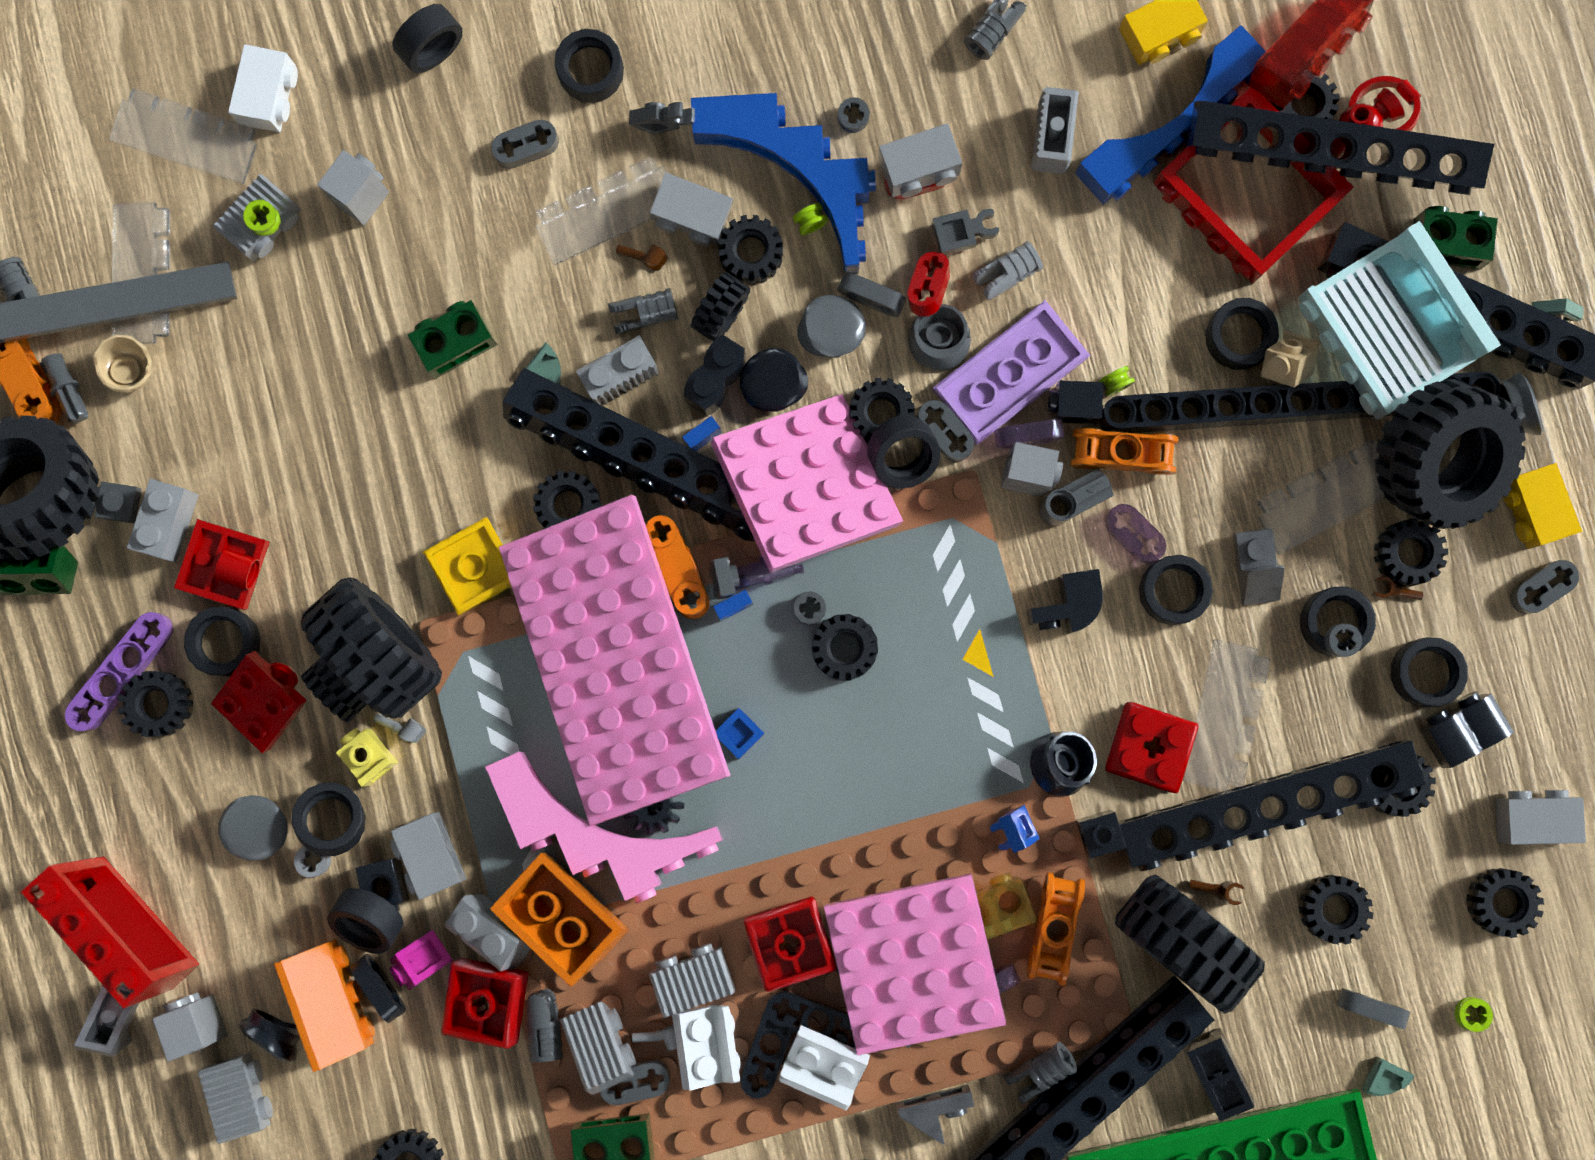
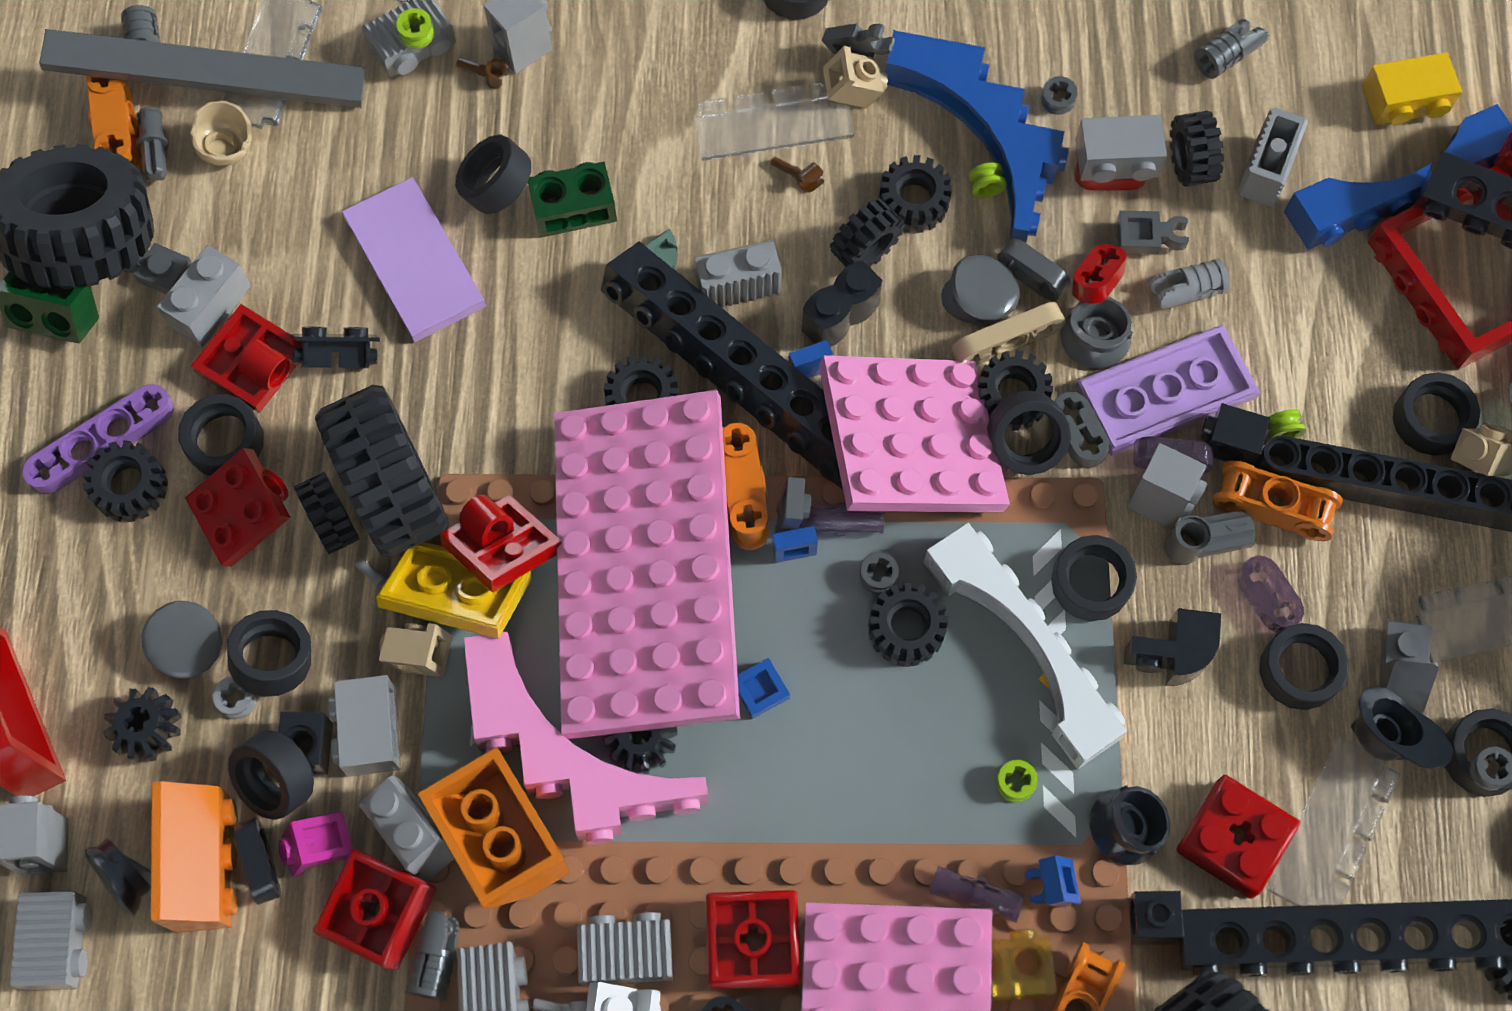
camera: 10 degrees right, 15 degrees down
(235, 898) = (129, 719): none -> black gear
(277, 537) = (317, 348): none -> black hinge
(331, 431) = (414, 259): none -> lavender tile
(335, 231) = (486, 71): none -> reddish brown hand
(360, 332) = (504, 185): none -> black tyre
(378, 759) = (338, 611): light yellow brick -> none
(448, 782) = (416, 649): none -> tan brick
(465, 724) = (440, 589): none -> yellow tile
(470, 566) = (516, 430): yellow plate -> none
(488, 674) = (499, 540): none -> red plate
(521, 136) = (707, 37): dark grey beam -> none
(651, 308) = (793, 224): dark grey hinge -> none
(668, 153) = (854, 78): none -> tan brick
(690, 209) = (862, 136): light grey brick -> none
(773, 380) = (904, 326): black piece -> none
(865, 362) = (1009, 334): none -> tan beam
(956, 855) = (977, 893): none -> clear purple pin
(973, 760) = (1026, 790): none -> lime bush
(986, 141) = (1196, 148): none -> black tyre
(1008, 690) = (968, 567): none -> white arch
(1015, 564) = (1111, 552): none -> black tyre
(1264, 626) = (1397, 731): none -> black piece

